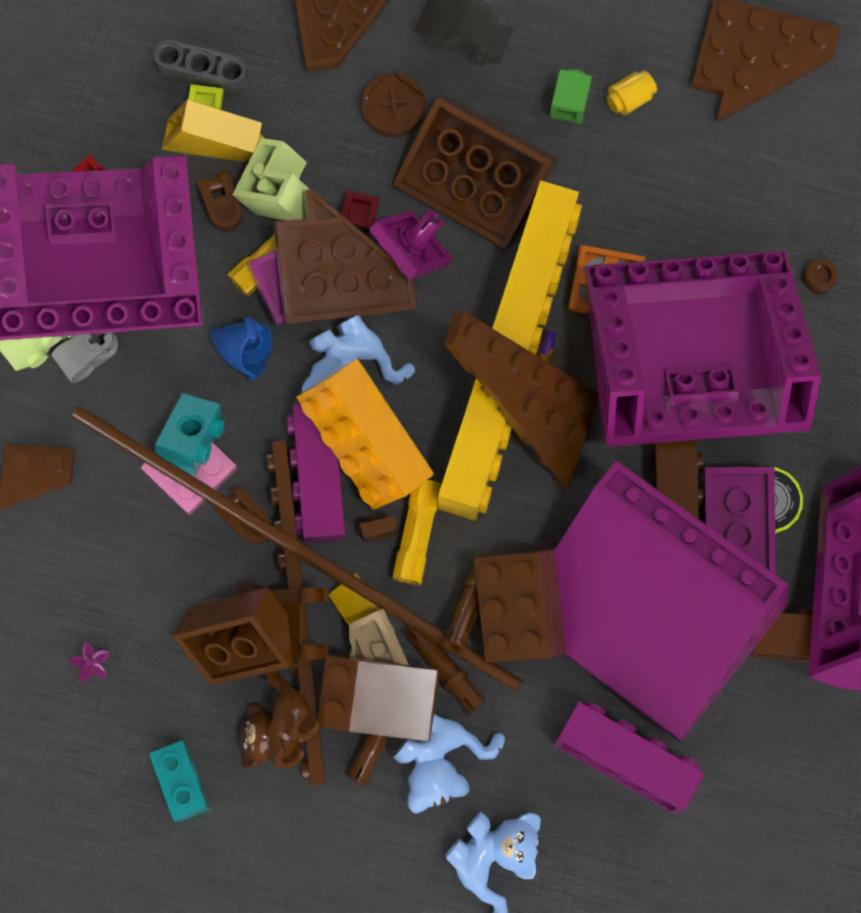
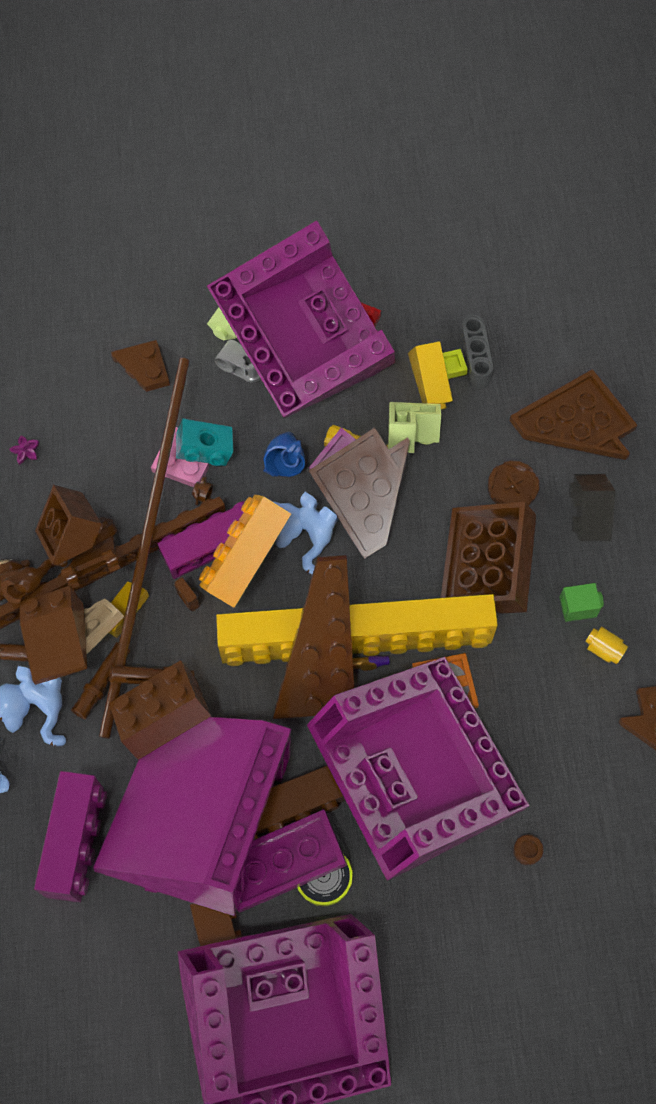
camera: 70 degrees right, 10 degrees down
(225, 210) = (378, 404): reddish brown plate -> none
(249, 462) = (202, 490): none -> reddish brown plate
(249, 535) = (167, 509): reddish brown plate -> none
(360, 210) = (420, 492): dark red plate -> none
(412, 242) = (415, 532): magenta plate -> none
(412, 553) = (175, 625): yellow axle -> none

